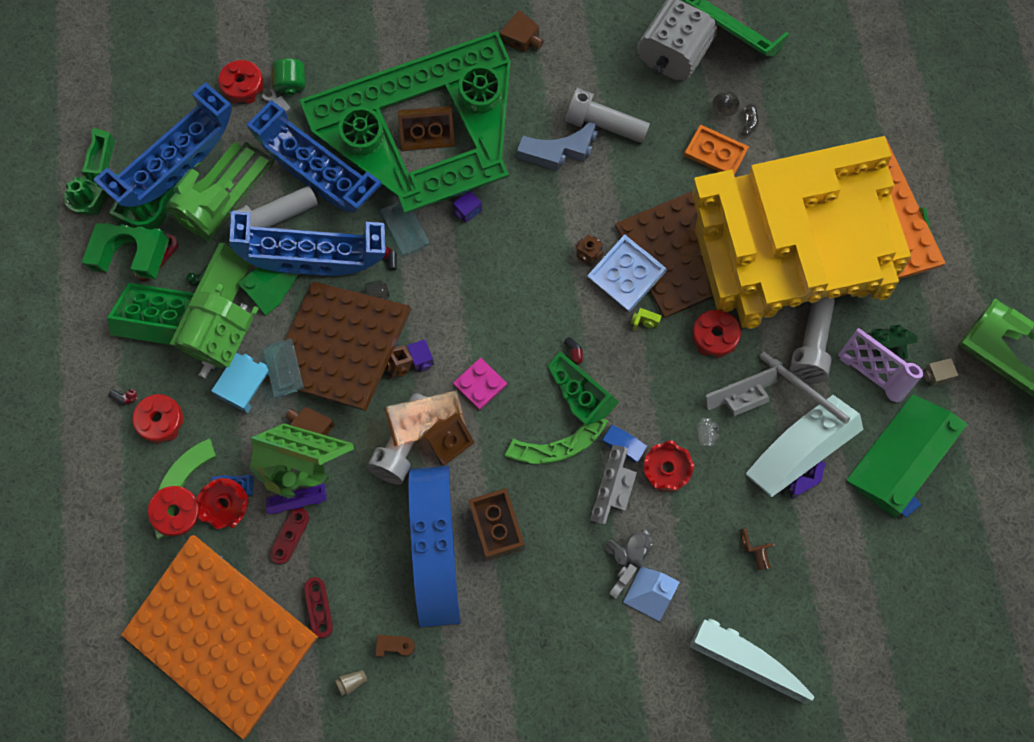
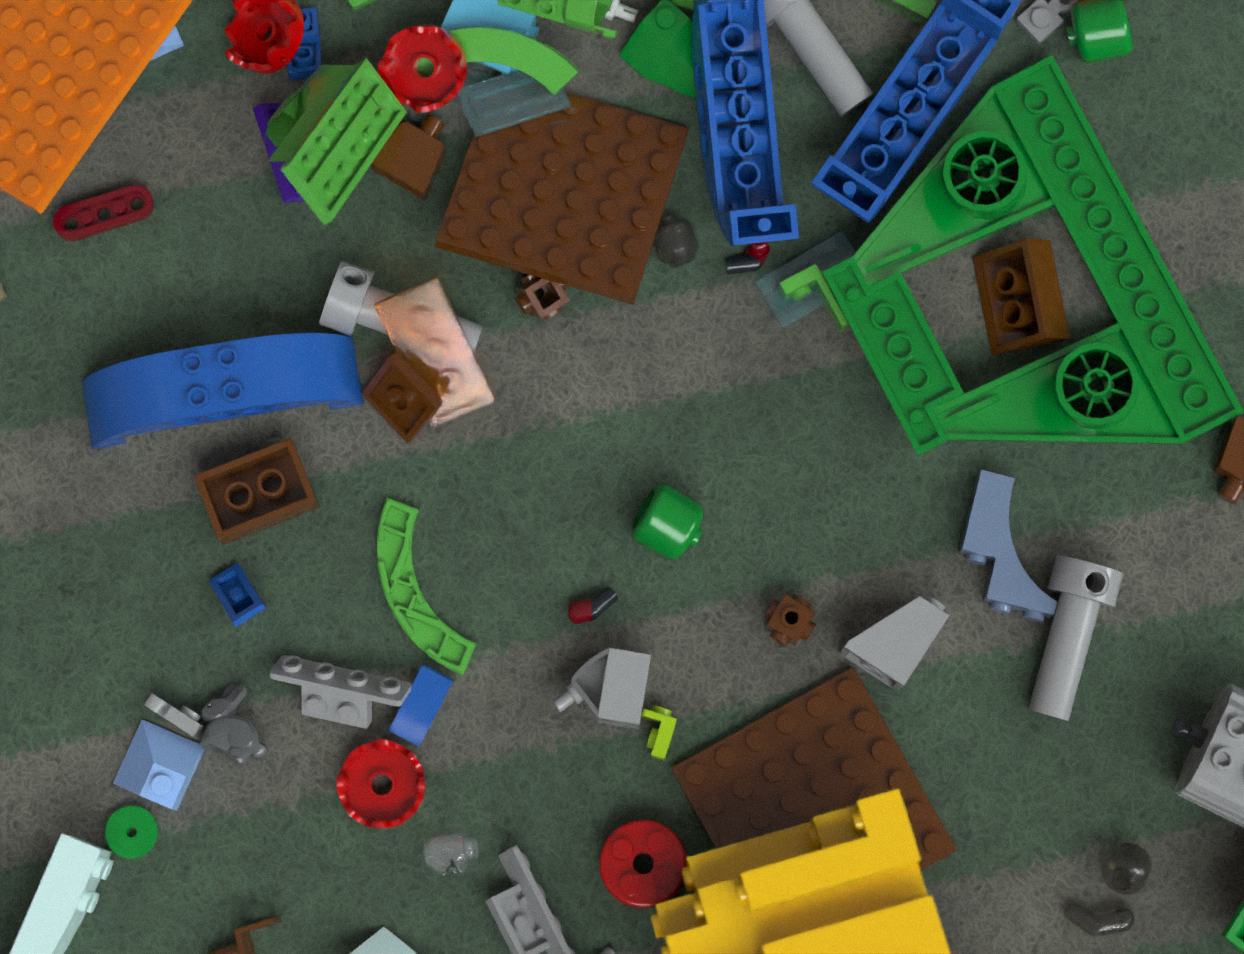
camera: 80 degrees right, 10 degrees up
(251, 376) = (512, 50): none -> bright green tile
(273, 410) = (401, 72): none -> red plate
(289, 545) = (235, 158): dark red plate -> none
(394, 644) = (48, 350): reddish brown leg -> none
(408, 220) = (800, 286): none -> bright green bracket
(421, 355) = (558, 334): dark purple brick -> none
(467, 207) = (859, 388): dark purple brick -> none
(480, 384) = (517, 443): dark pink plate -> none
(531, 306) = (668, 522): none -> green head
(556, 539) = (237, 594): none -> blue slope
(584, 395) = (505, 632): green wedge -> none
(605, 196) = (897, 642): none -> light grey slope
(622, 337) = (610, 687): none -> light grey piece
(627, 273) = (747, 692): light blue plate -> none
(696, 611) = (118, 830): none -> green piece
(716, 150) = (1025, 854): orange plate -> none

